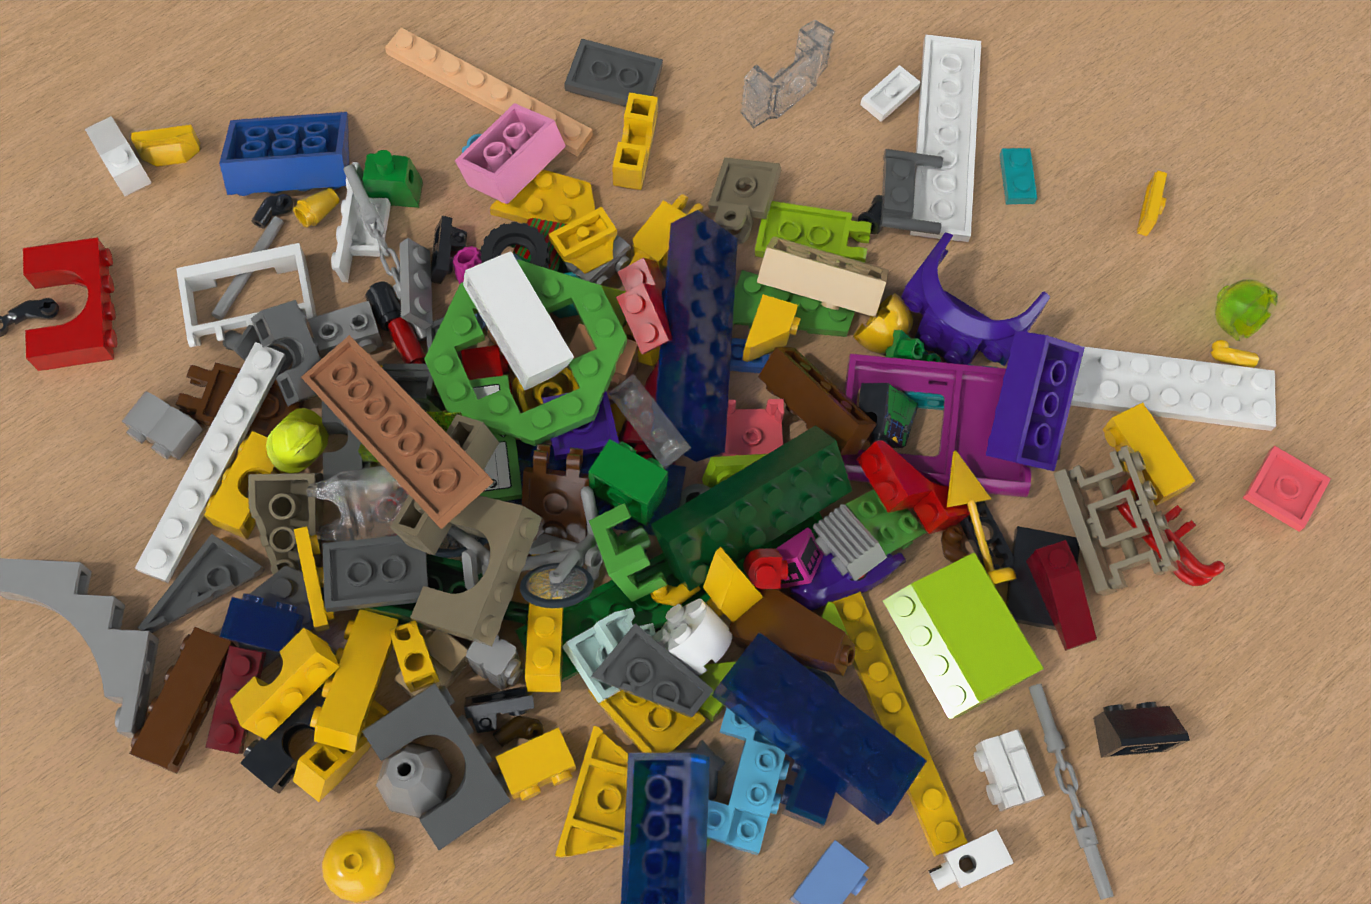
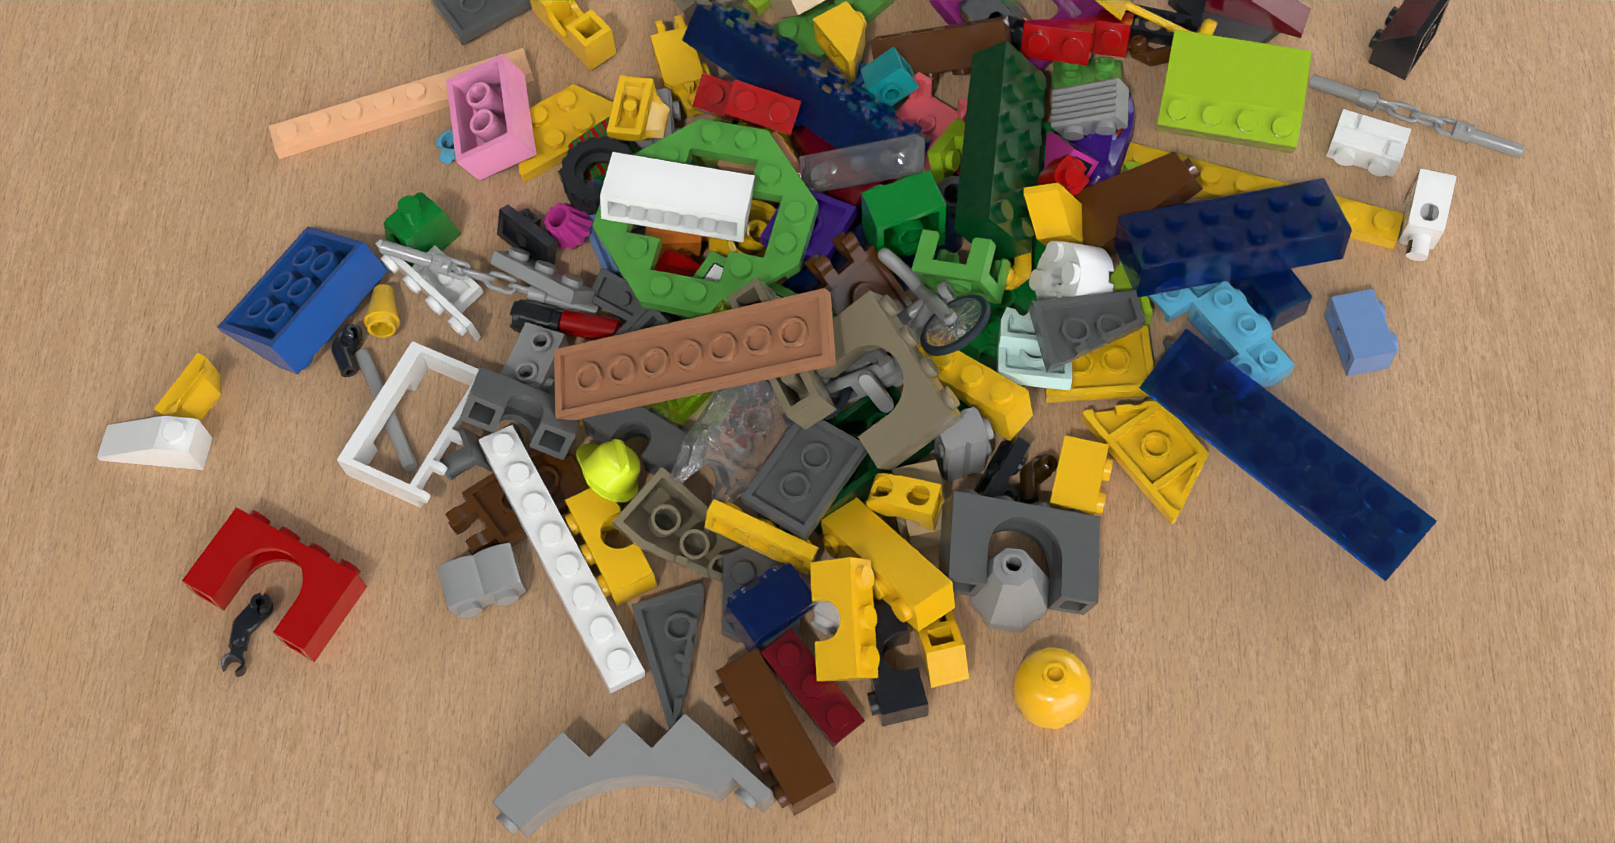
camera: 40 degrees left, 5 degrees down
(756, 383) = (889, 78): none -> teal brick

